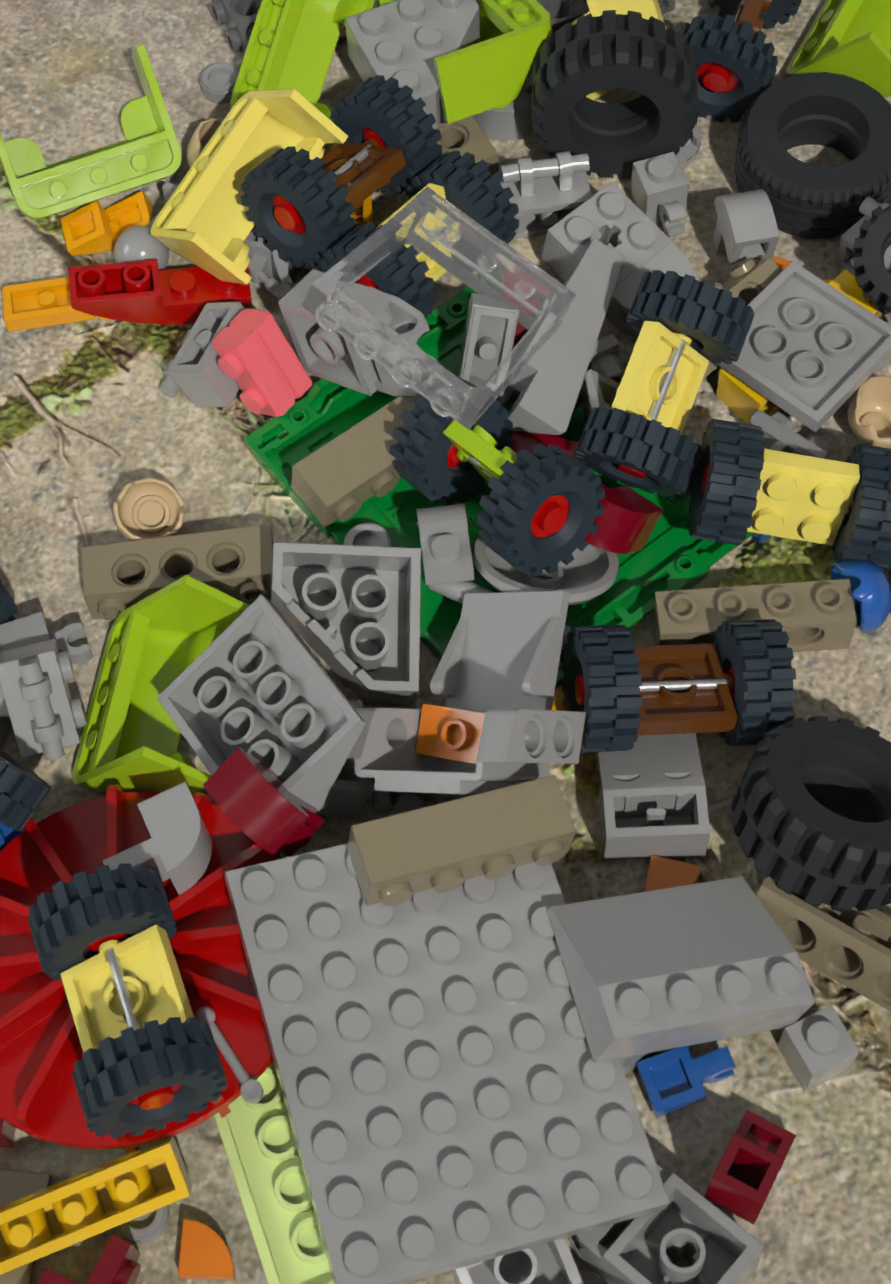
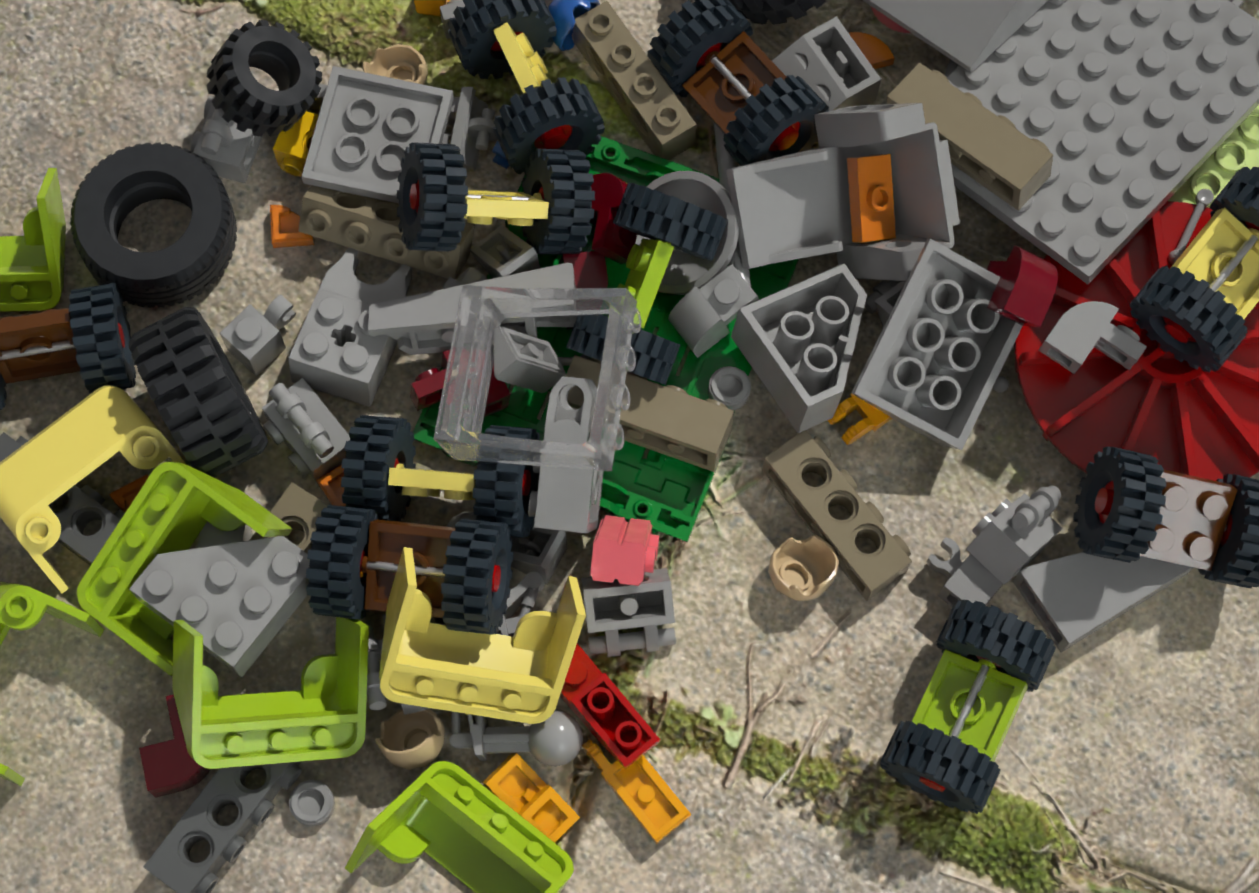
camera: 125 degrees left, 10 degrees up
(147, 648) = (962, 486): lime windscreen -> none
(745, 226) = (272, 237): light grey brick -> none

